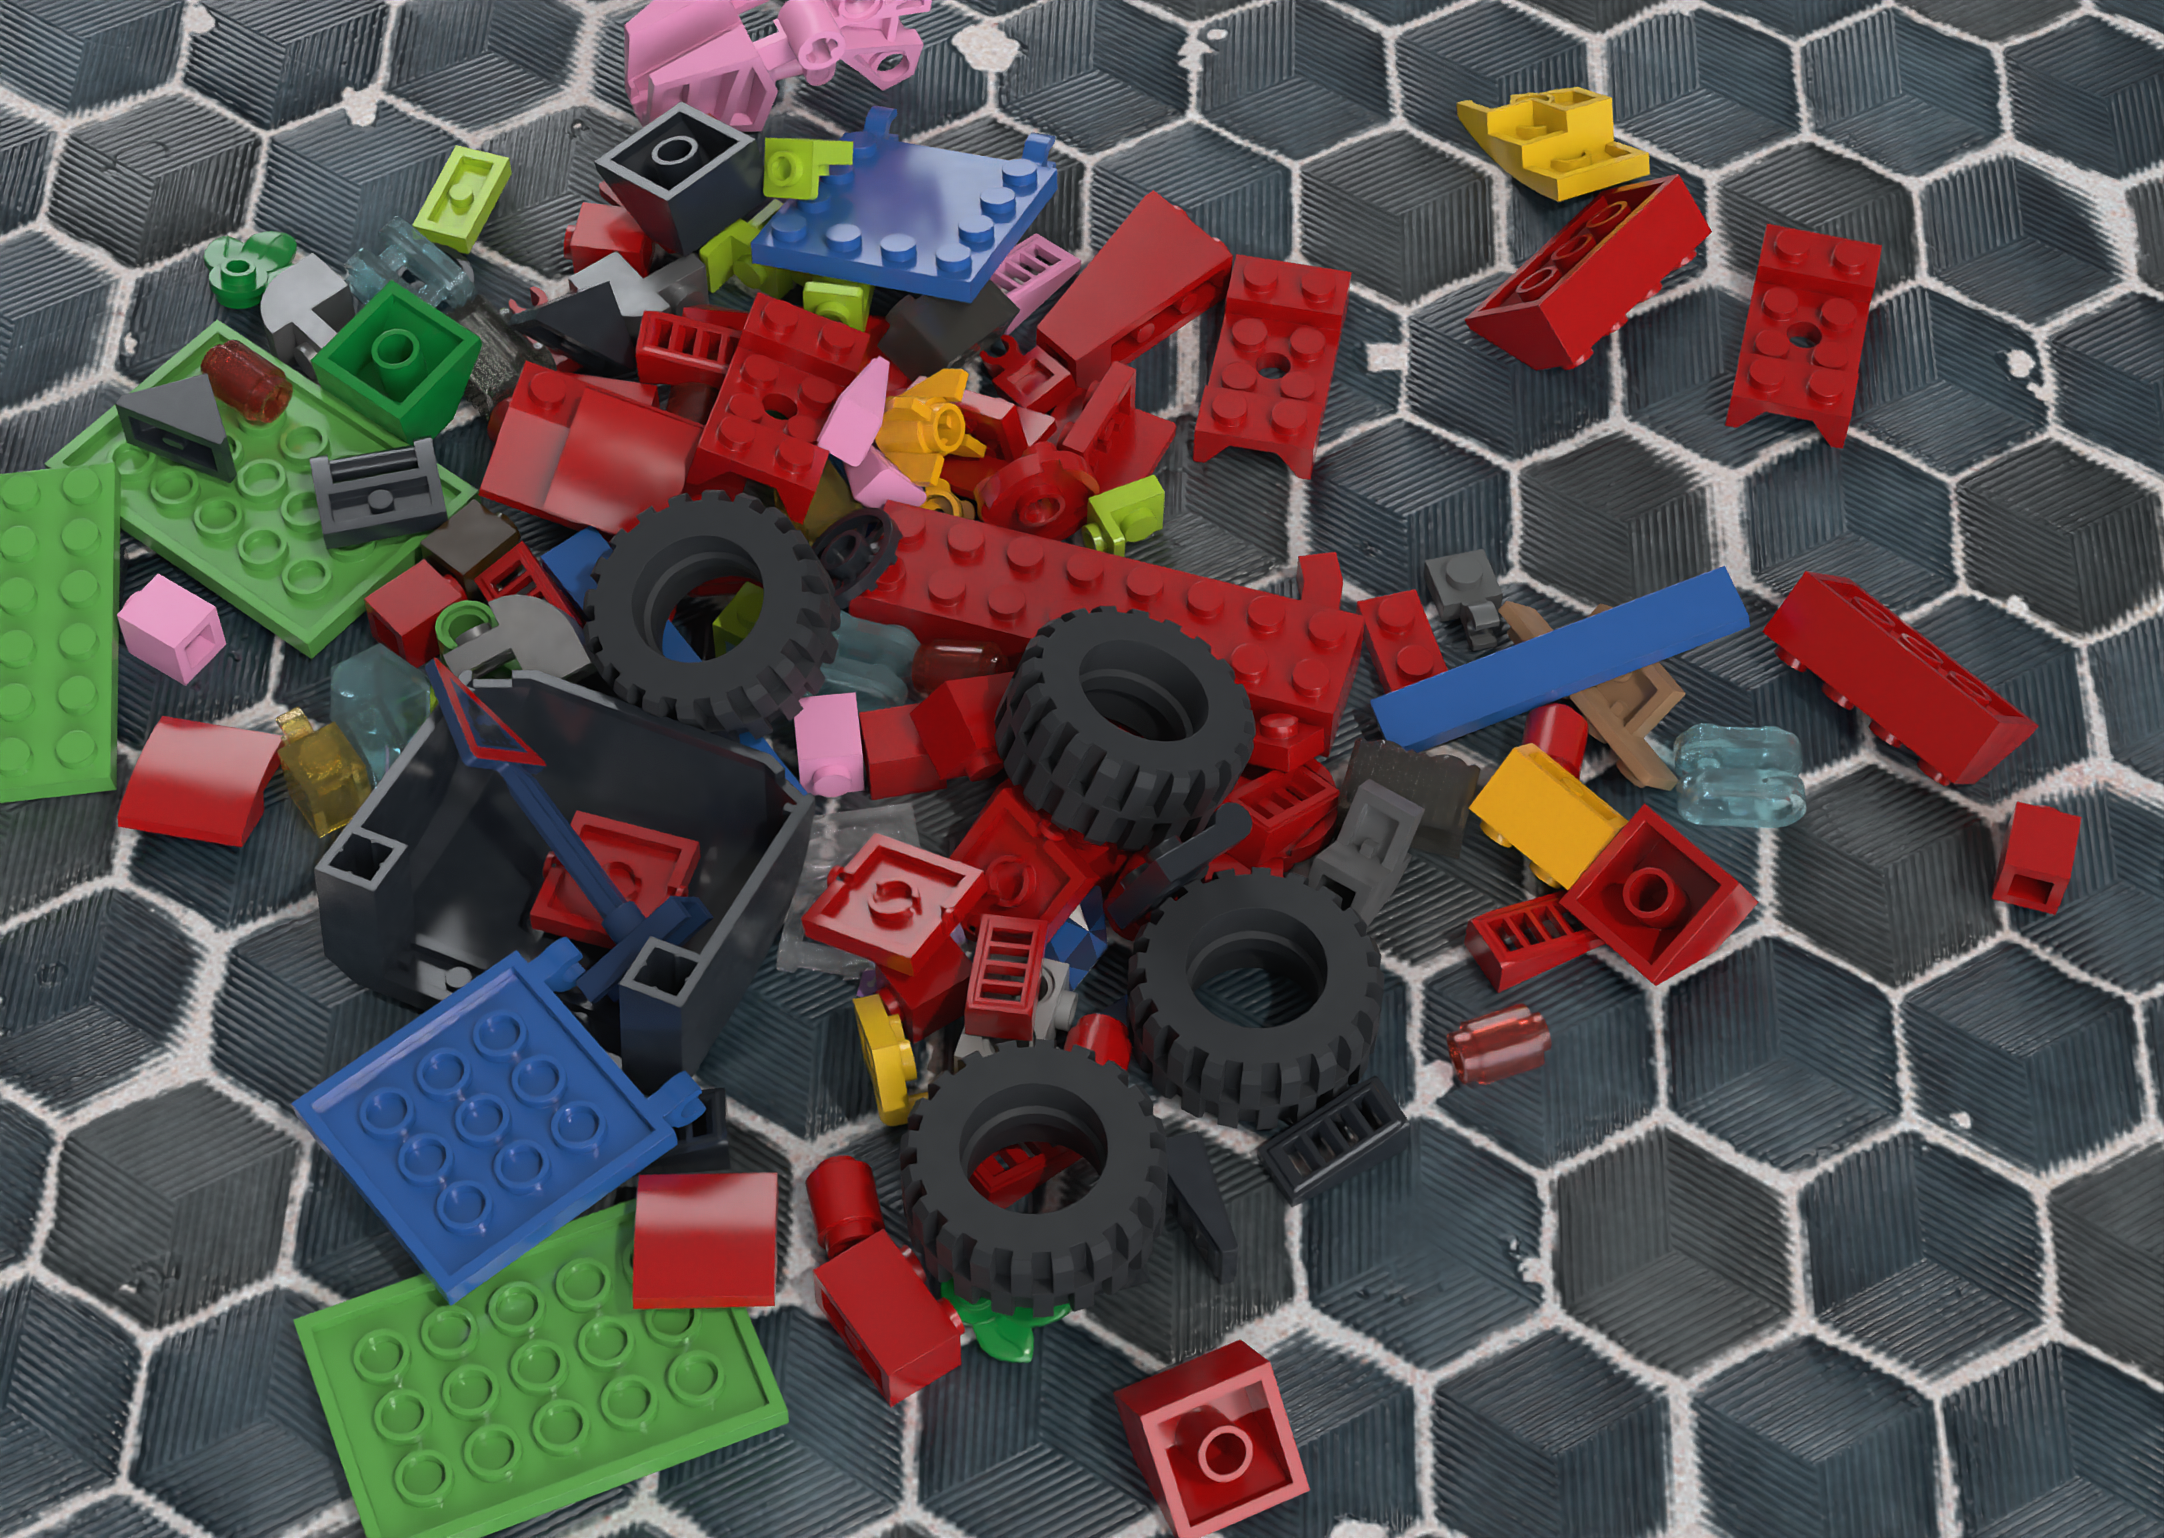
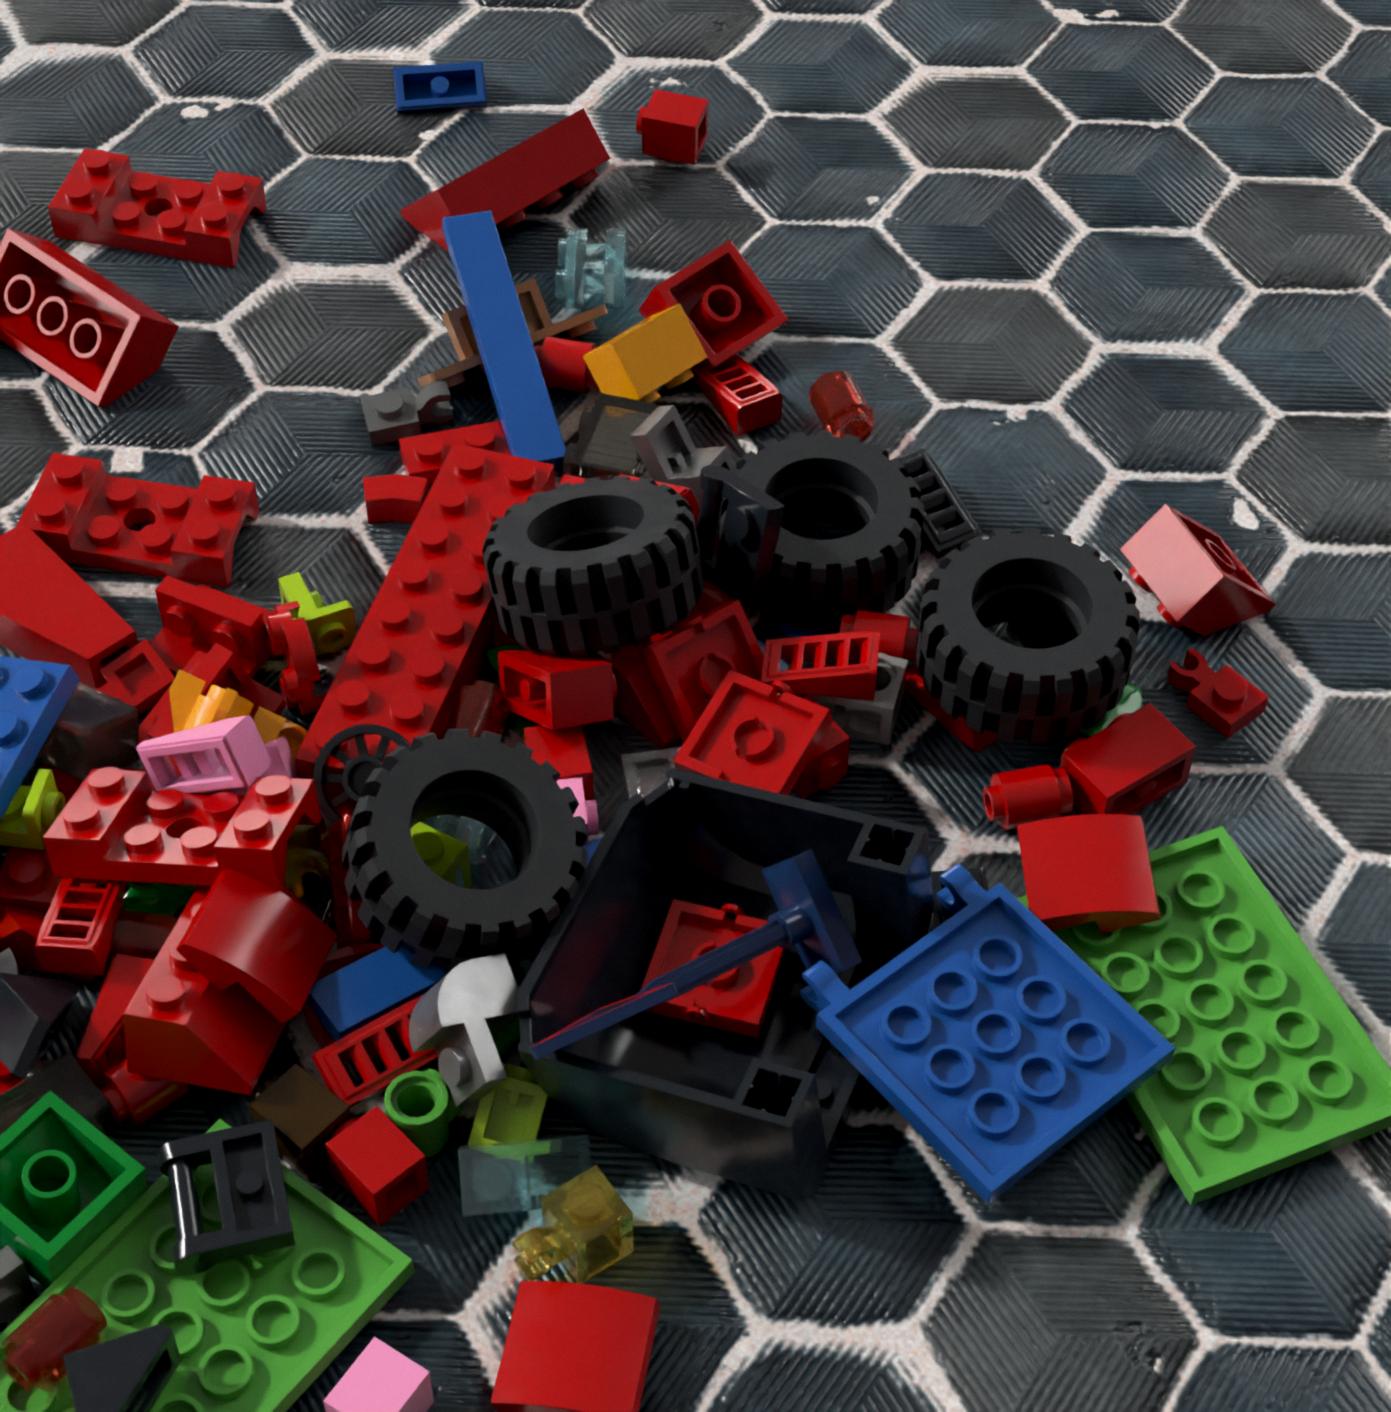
camera: 90 degrees left, 5 degrees down
(887, 1059) = (894, 758): yellow plate -> none
(1018, 1456) = (1217, 697): none -> red plate
(2105, 609) = (440, 87): none -> blue slope

